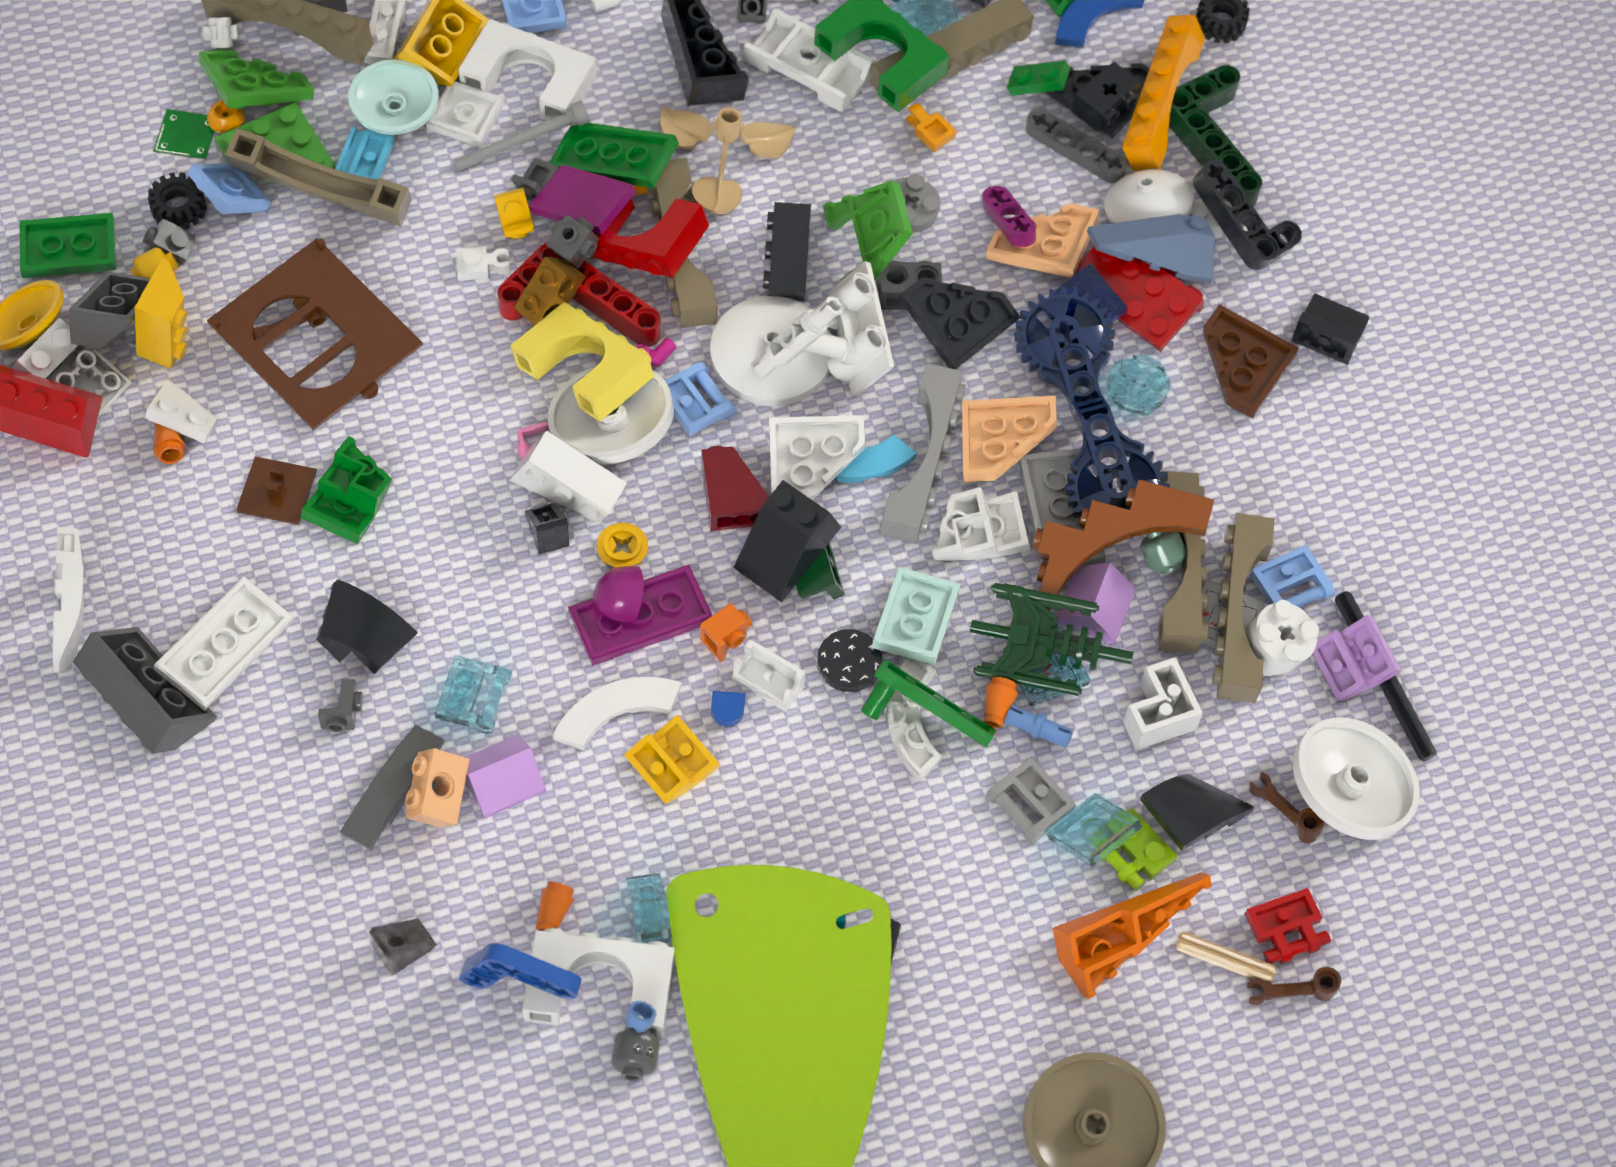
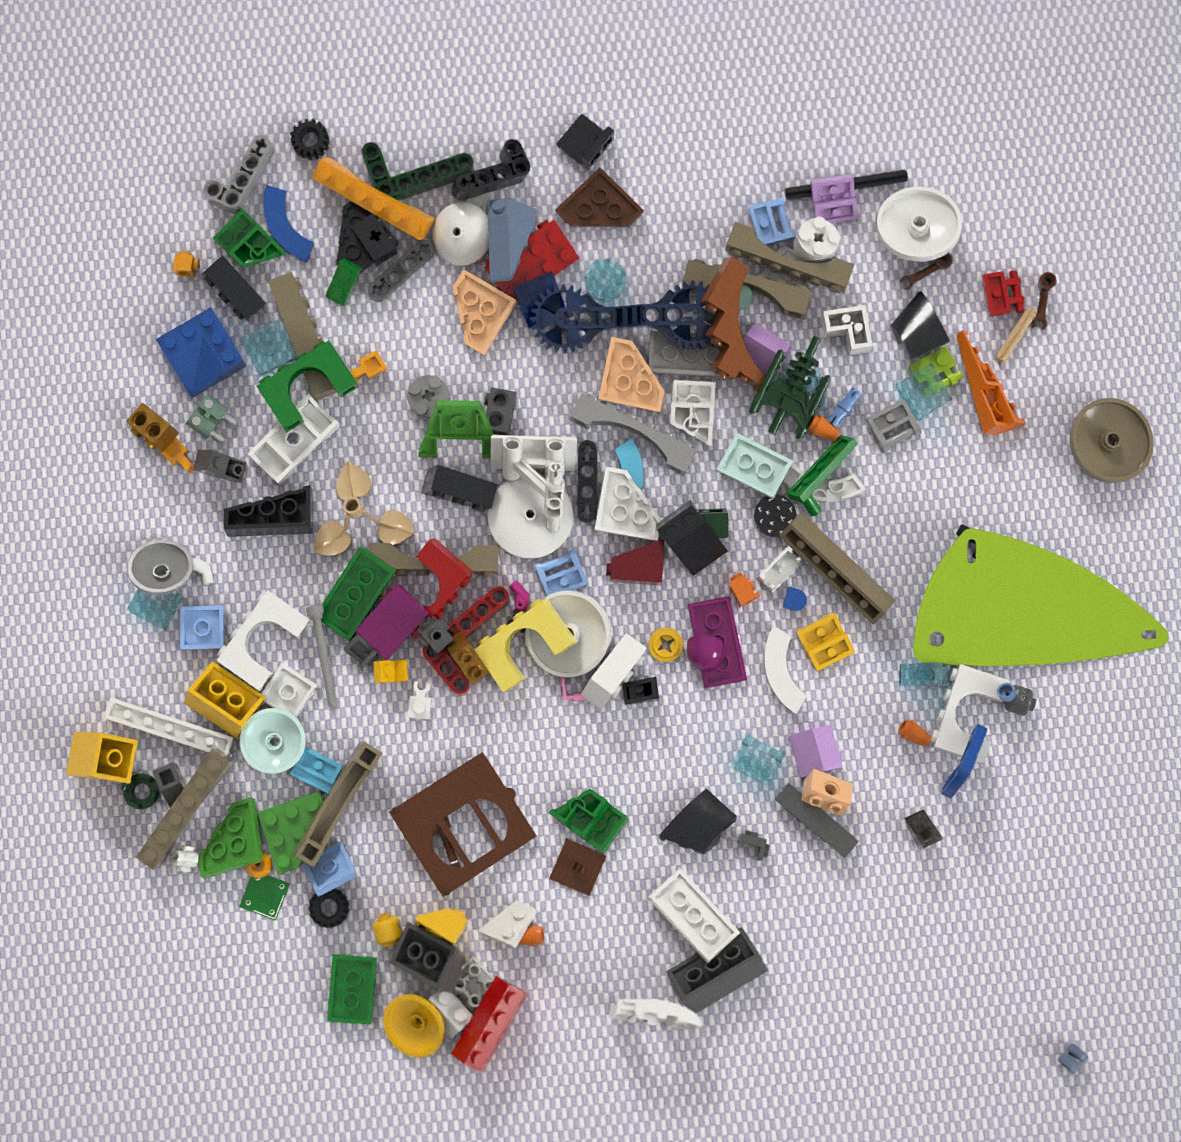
camera: 75 degrees left, 20 degrees up
(169, 239) = (363, 917): bracket -> none
(786, 747) = (837, 568): none -> dark tan brick
(838, 404) = (587, 482): none -> black beam
(957, 317) = (535, 385): black plate -> none
(1009, 206) = (445, 341): magenta beam -> none

